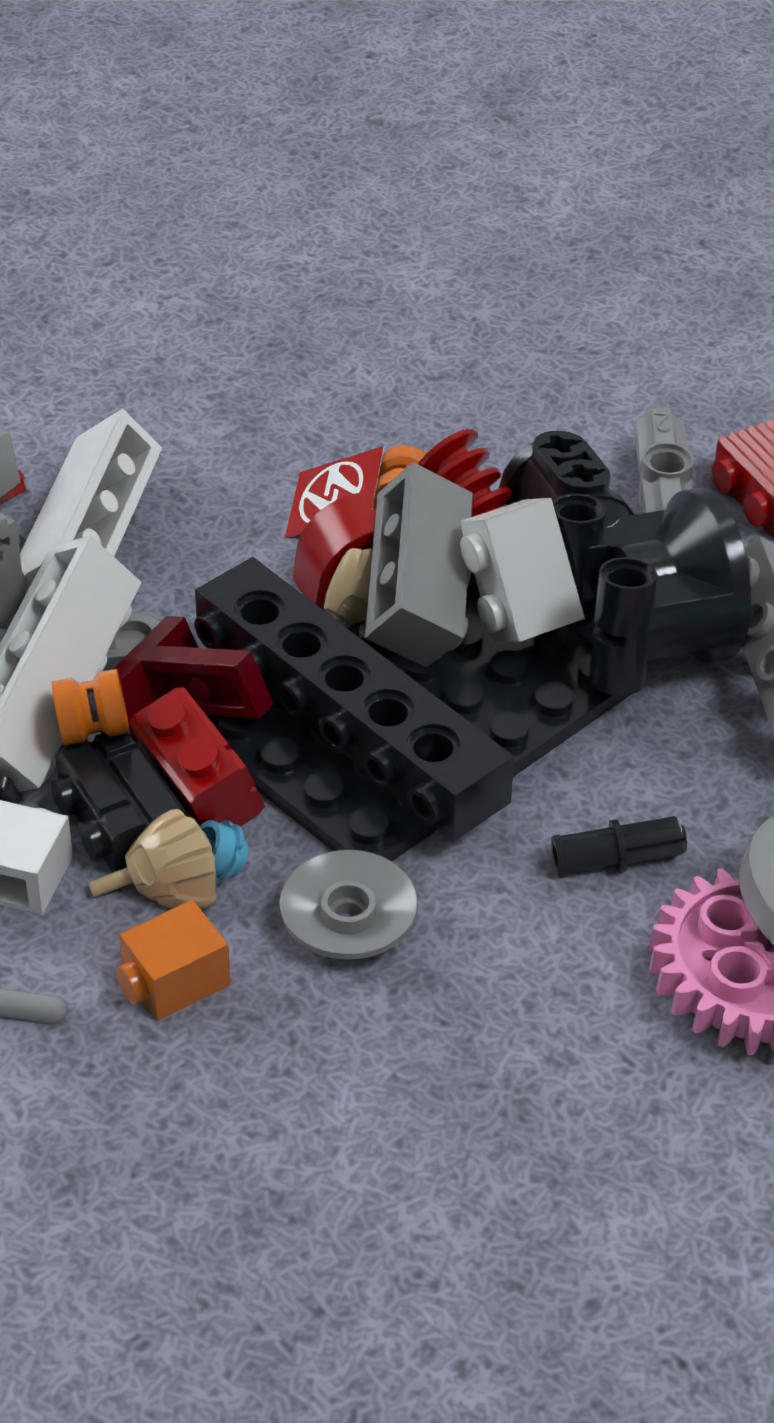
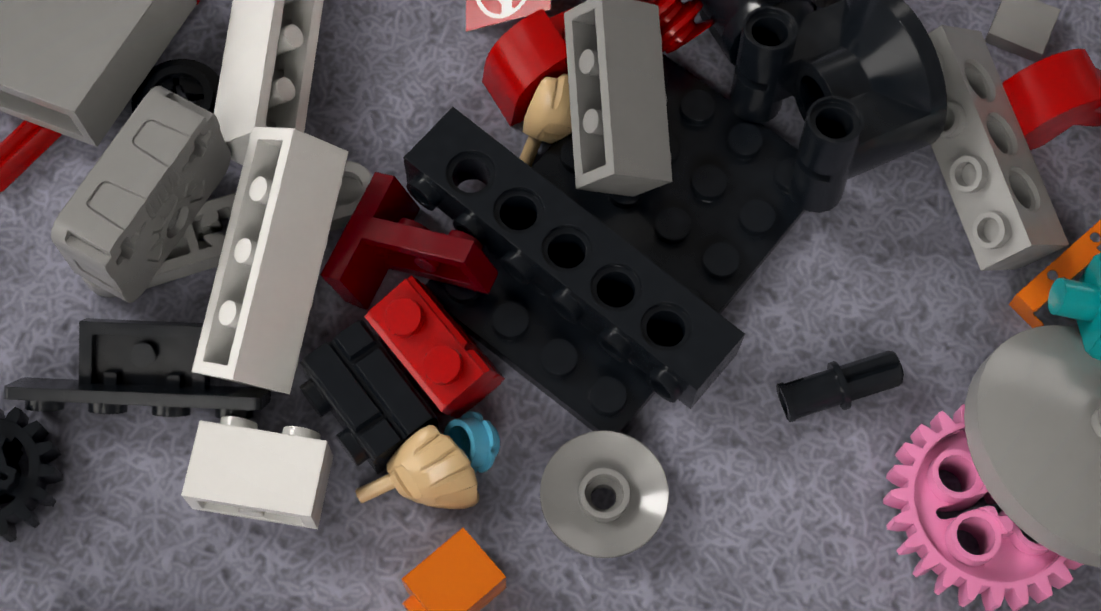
camera: 10 degrees left, 25 degrees up
(75, 708) = (313, 325): orange wheel -> none
(520, 570) = (717, 94): white brick -> none

